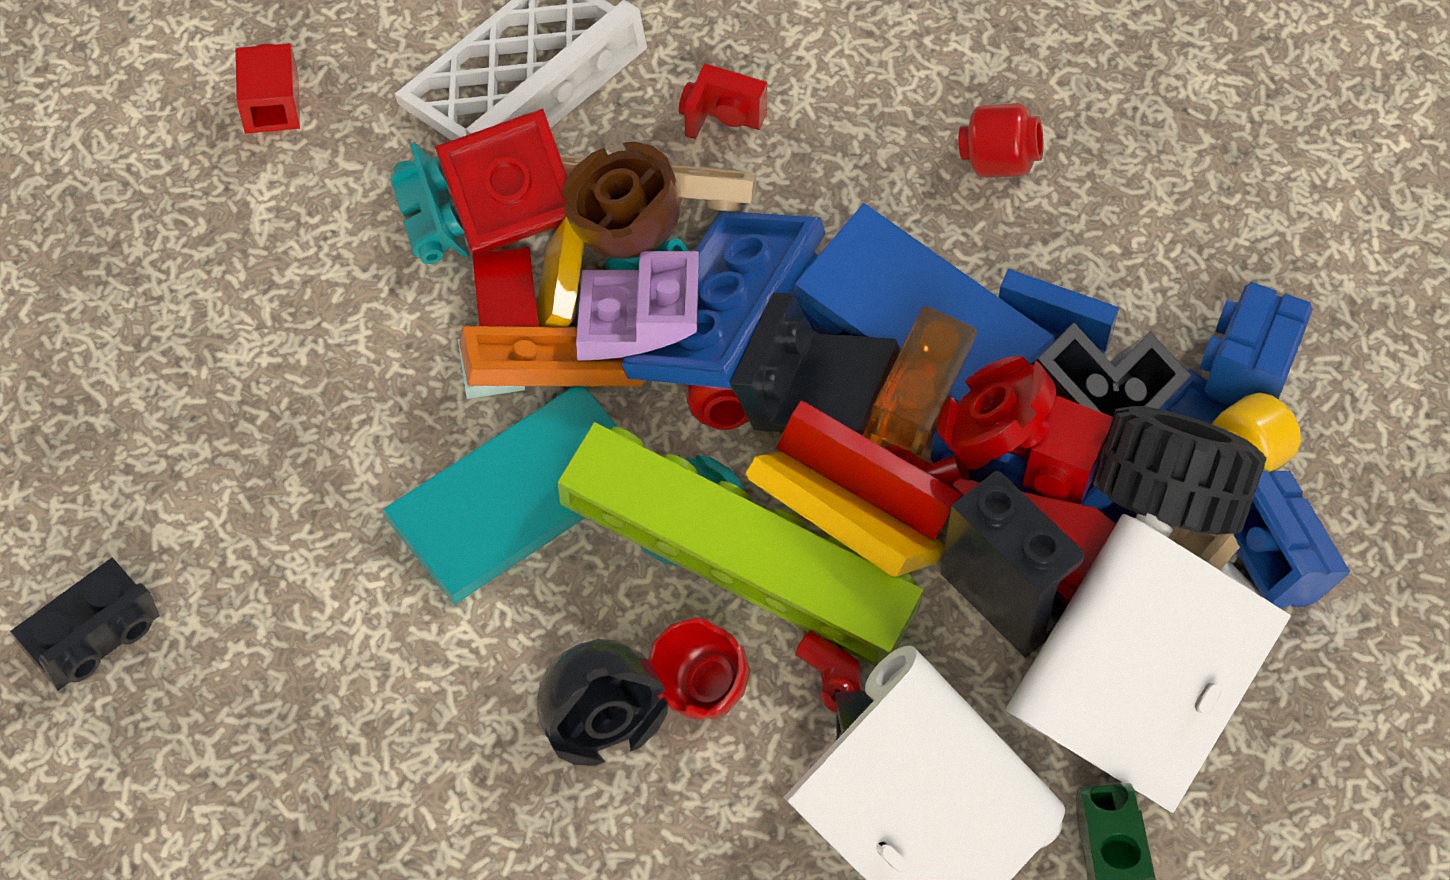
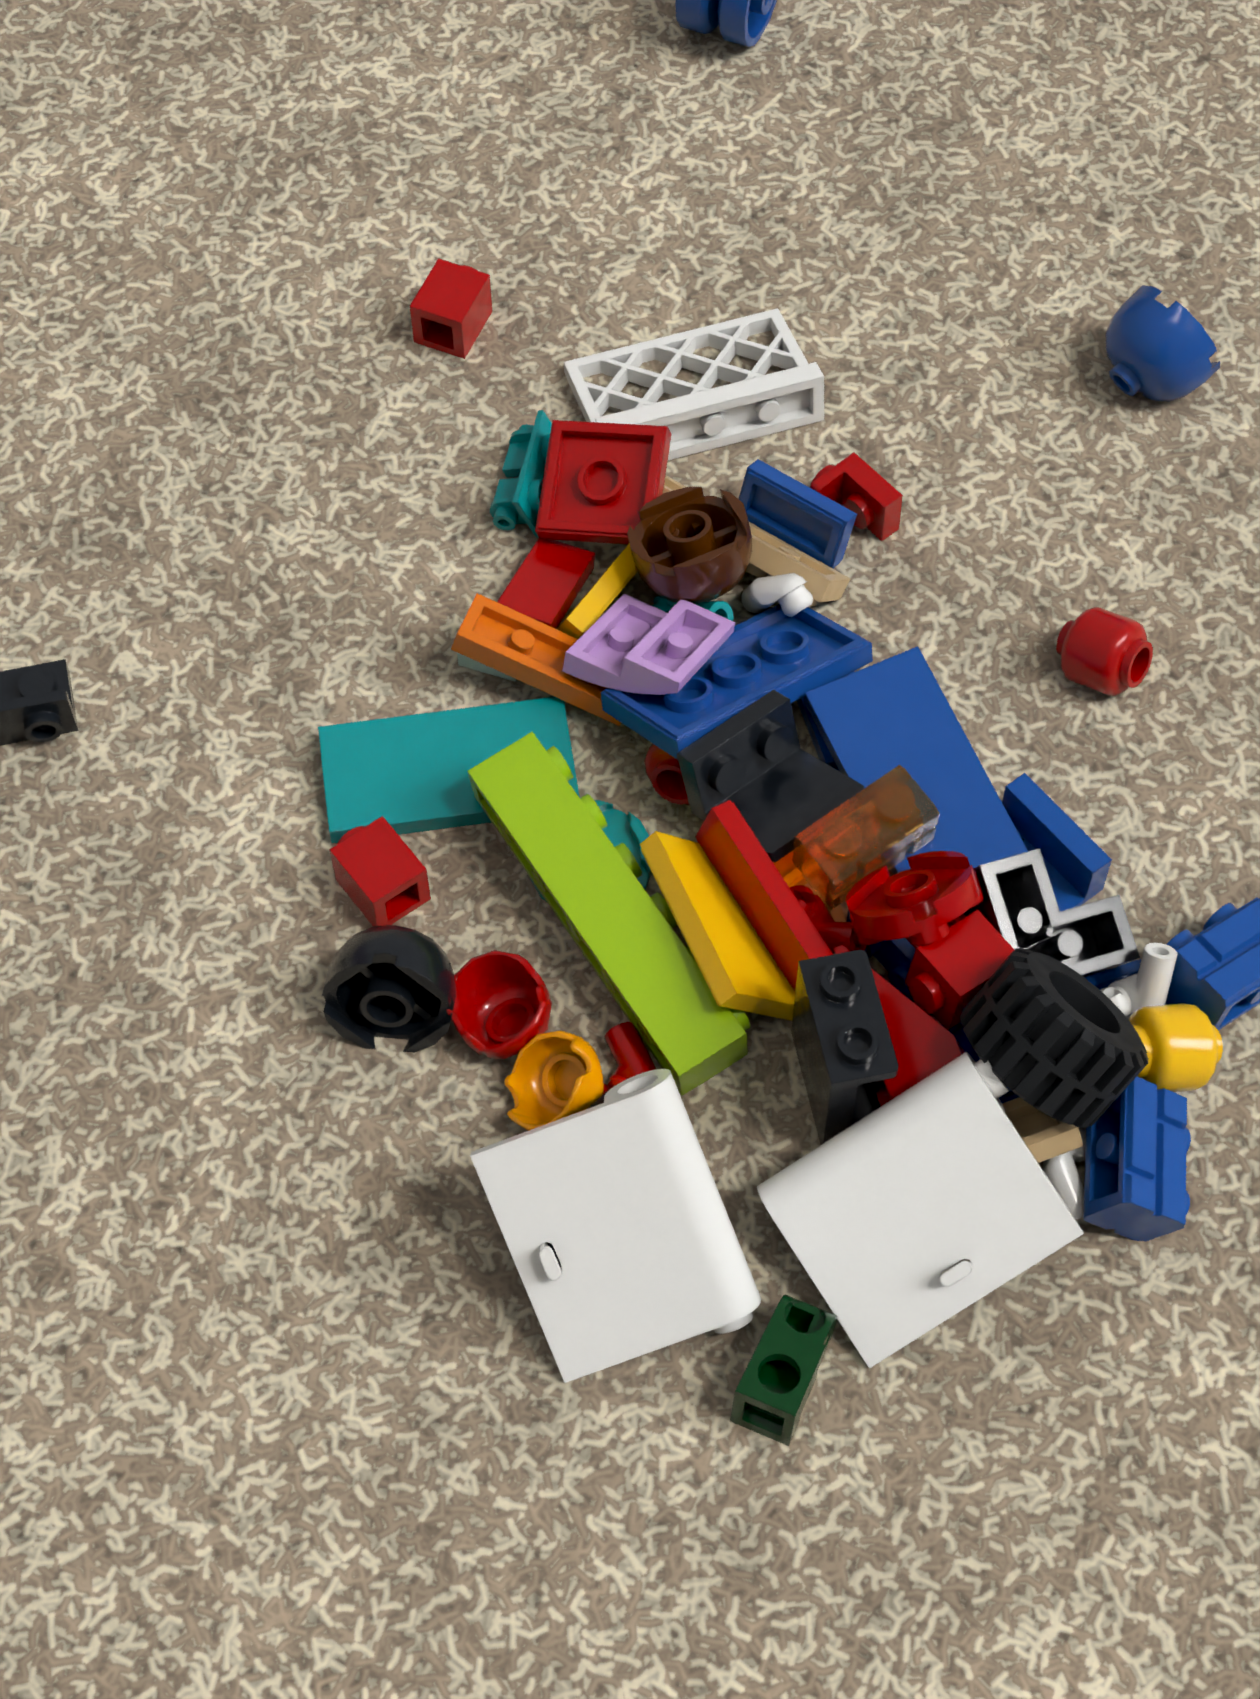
camera: 30 degrees right, 0 degrees up
(521, 608) = (380, 873): none -> red brick
(685, 135) = (796, 513): none -> blue tile
(704, 212) = (785, 588): none -> white arm
(785, 711) = (553, 1079): none -> light orange hair
(1212, 392) = (1149, 985): none -> white arm

